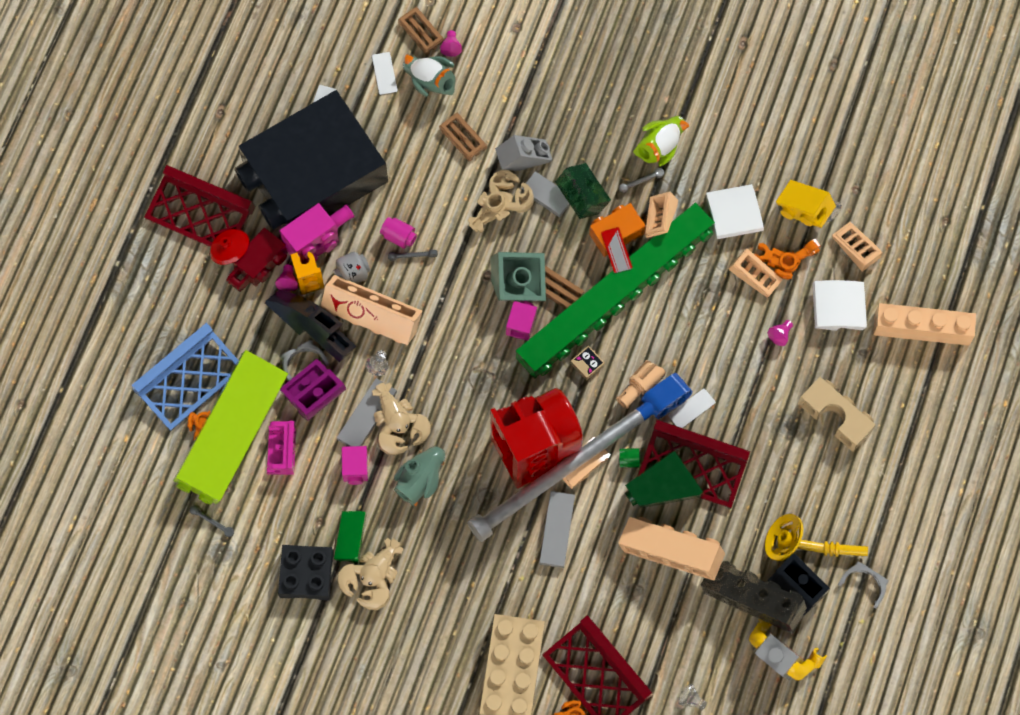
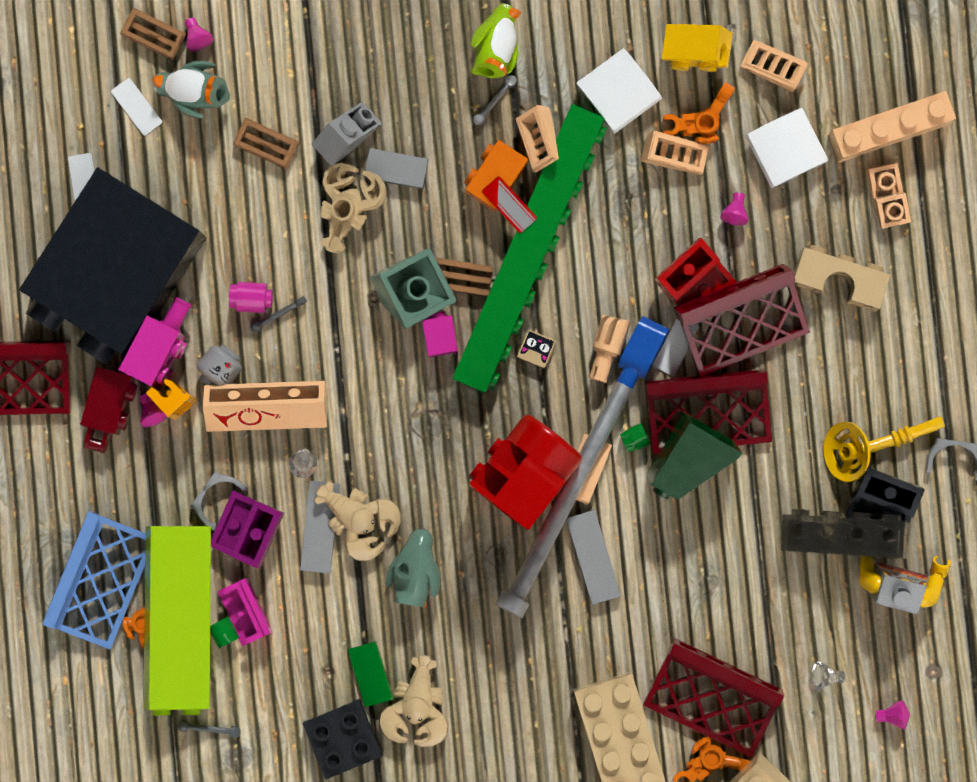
camera: 25 degrees left, 15 degrees up
(229, 246) = (67, 407): red piece -> none
(258, 455) = (224, 632): none -> green hose
(307, 316) = (207, 449): black slope -> none
(355, 464) = (336, 592): dark pink brick -> none
(582, 190) = (436, 148): clear green brick -> none
(672, 548) = (731, 524): light nougat brick -> none
(727, 364) = (694, 274): none -> red brick
(757, 389) = (740, 295): none -> dark red fence
(900, 372) = (888, 195): none -> light nougat slope

